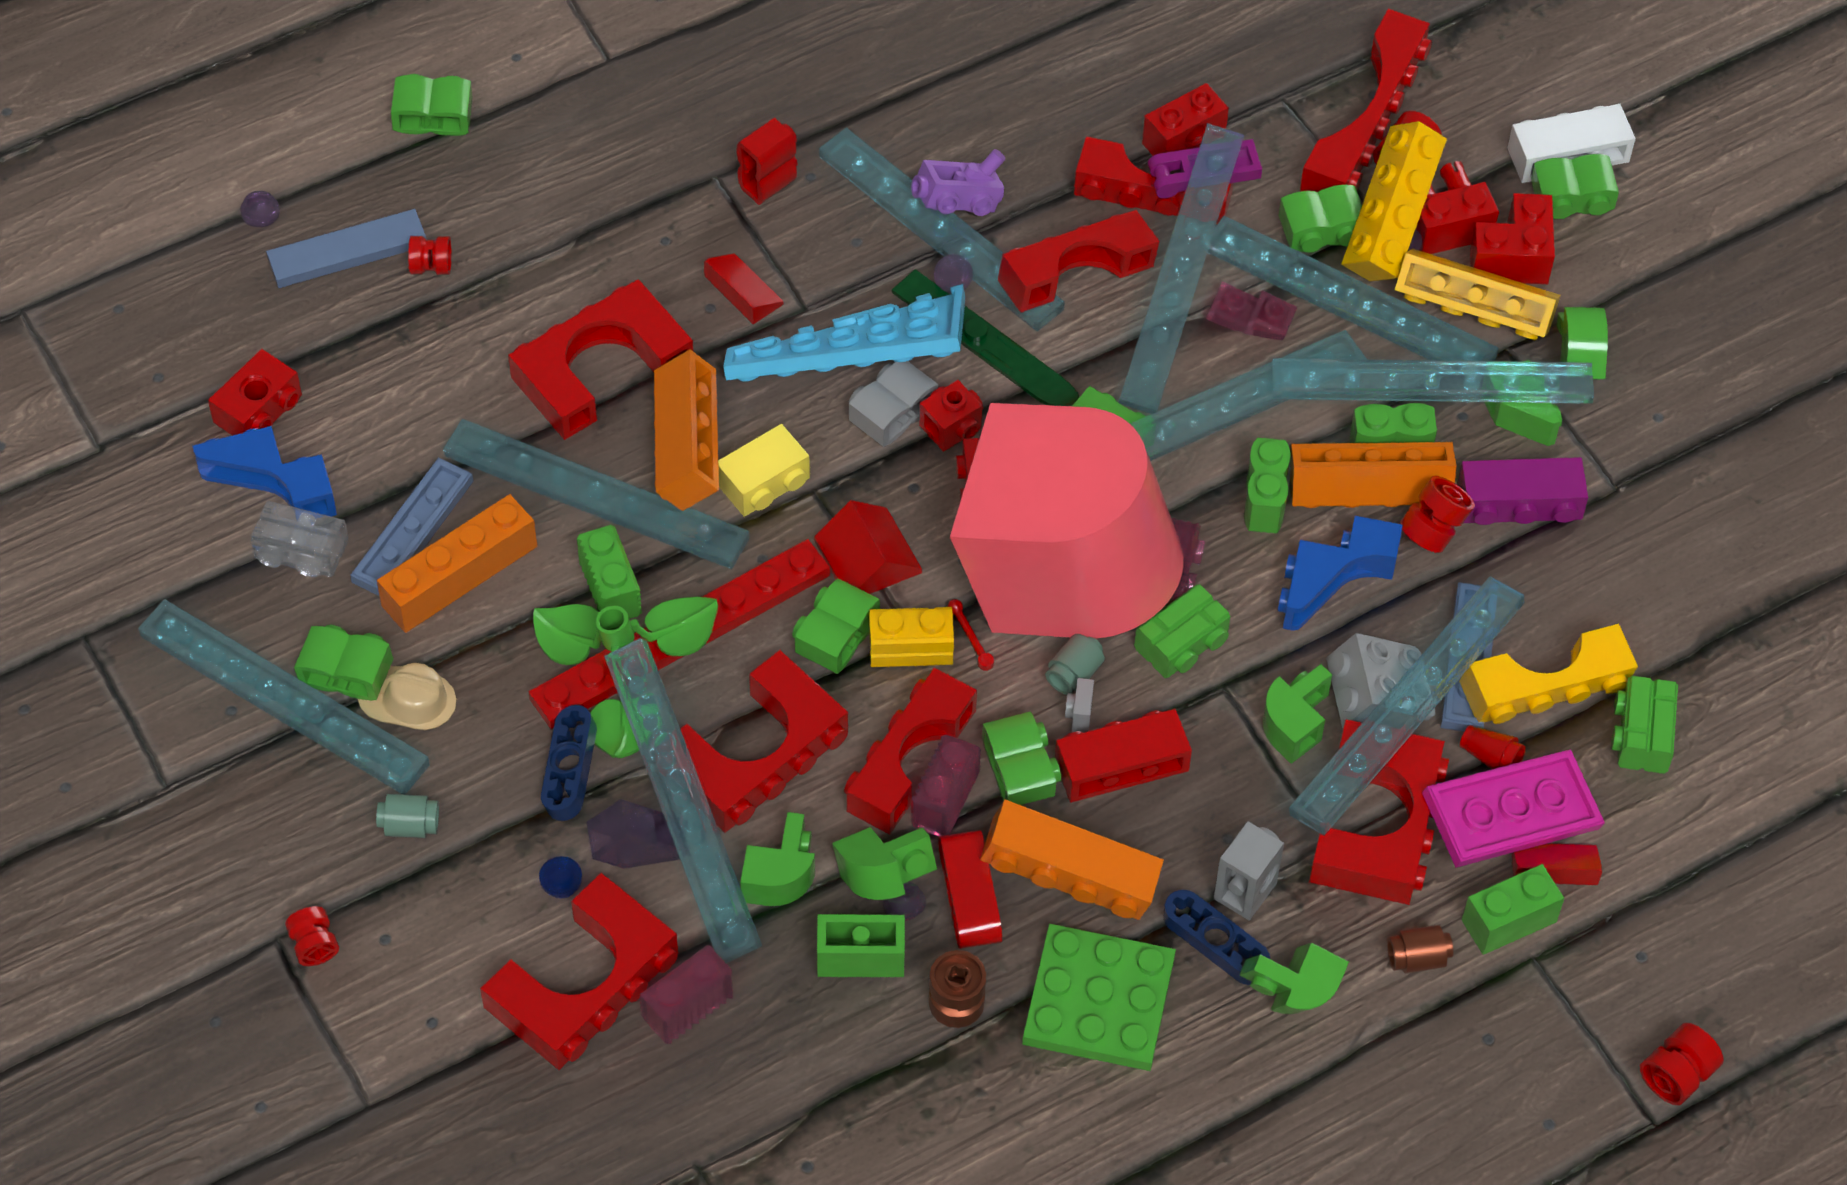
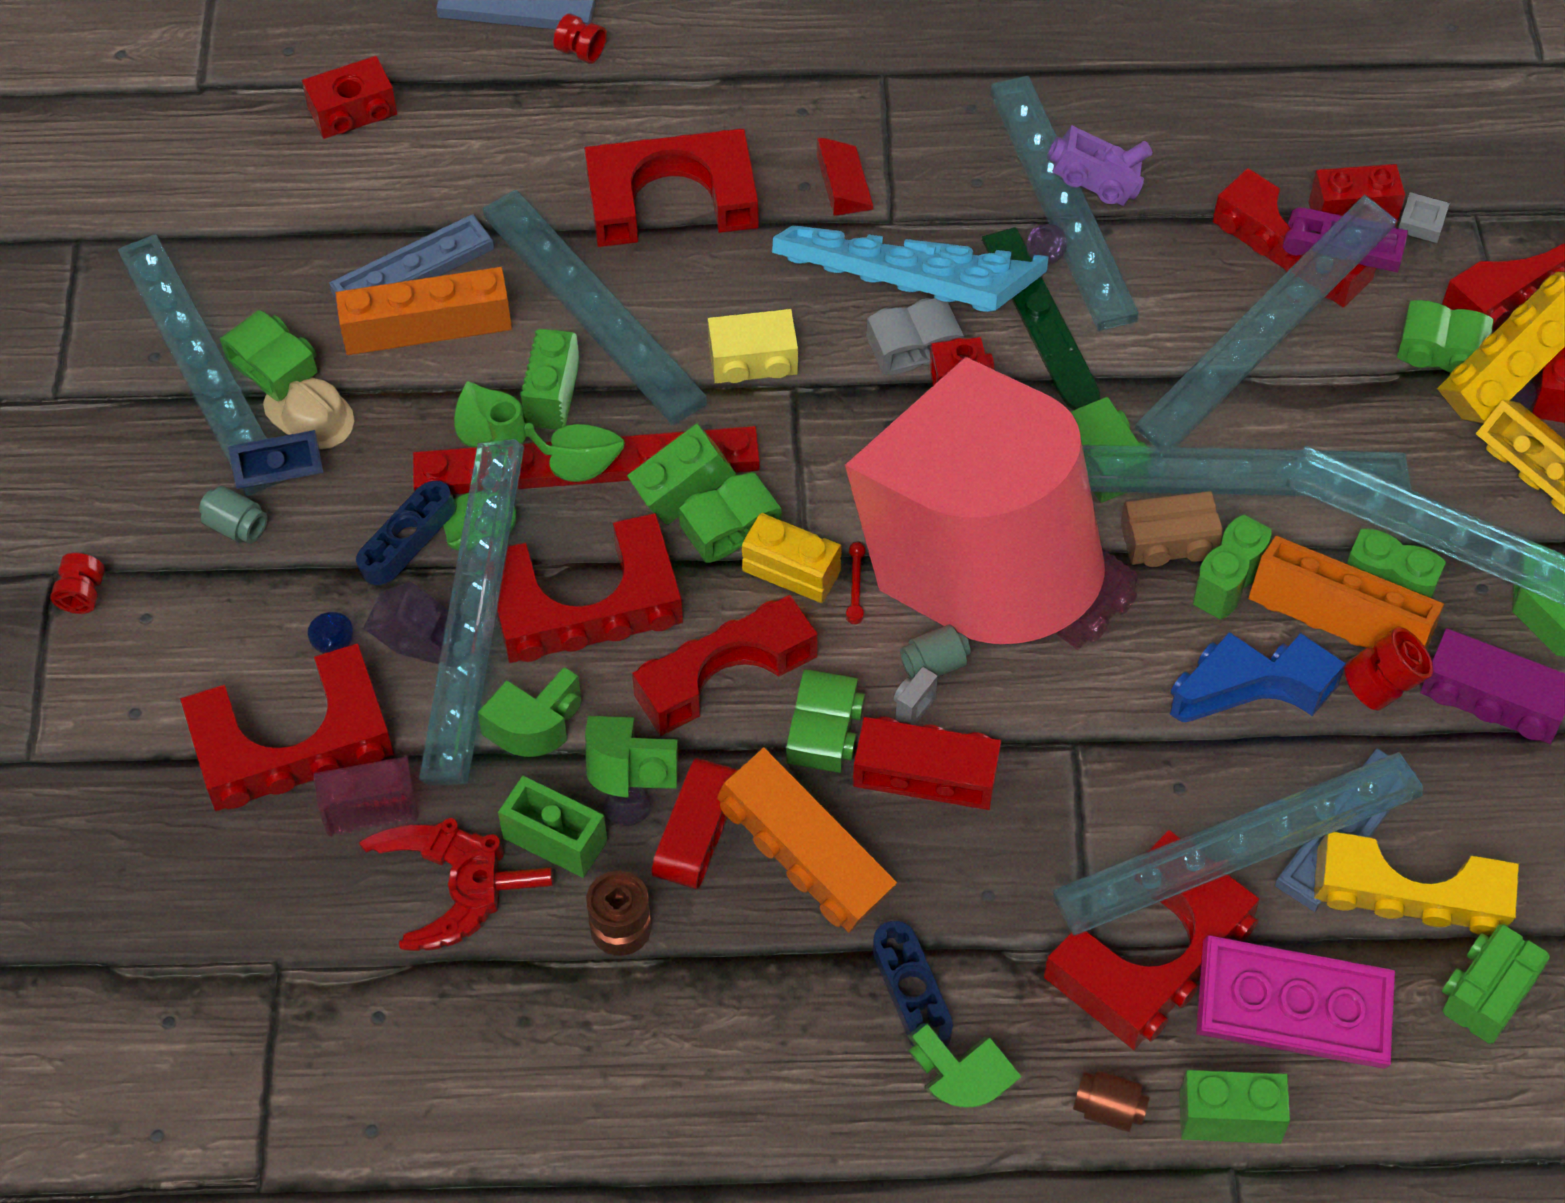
camera: 30 degrees right, 0 degrees up
(255, 463) = (316, 153): blue arch -> none
(299, 539) = (304, 233): clear brick -> none
(419, 750) = (275, 459): none -> dark blue slope
(686, 430) = (699, 279): orange brick -> none
(767, 160) = (930, 72): red brick -> none
(779, 605) = (680, 470): none -> bright green brick
(816, 1022) = (472, 879): none -> red bar
(866, 548) = (807, 459): red slope -> none
(945, 786) = (734, 712): clear pink brick -> none
(1099, 997) = (759, 990): bright green plate -> none
(1117, 244) = (1219, 279): red arch -> none
(1183, 632) = (1061, 671): bright green brick -> none
(1201, 474) = (1171, 528): none -> medium nougat brick
(1248, 118) = (1424, 217): none -> light grey plate
(1249, 870) = (976, 933): light grey brick -> none
(1259, 316) = (1319, 401): clear pink slope -> none
(1289, 713) = (1119, 800): bright green brick -> none
(1345, 295) = (1426, 422): clear light blue plate -> none
(1366, 671) = (1223, 789): light grey bracket -> none
(1492, 747) = (1313, 930): red cone -> none
(1564, 862) = (1318, 1083): red slope -> none

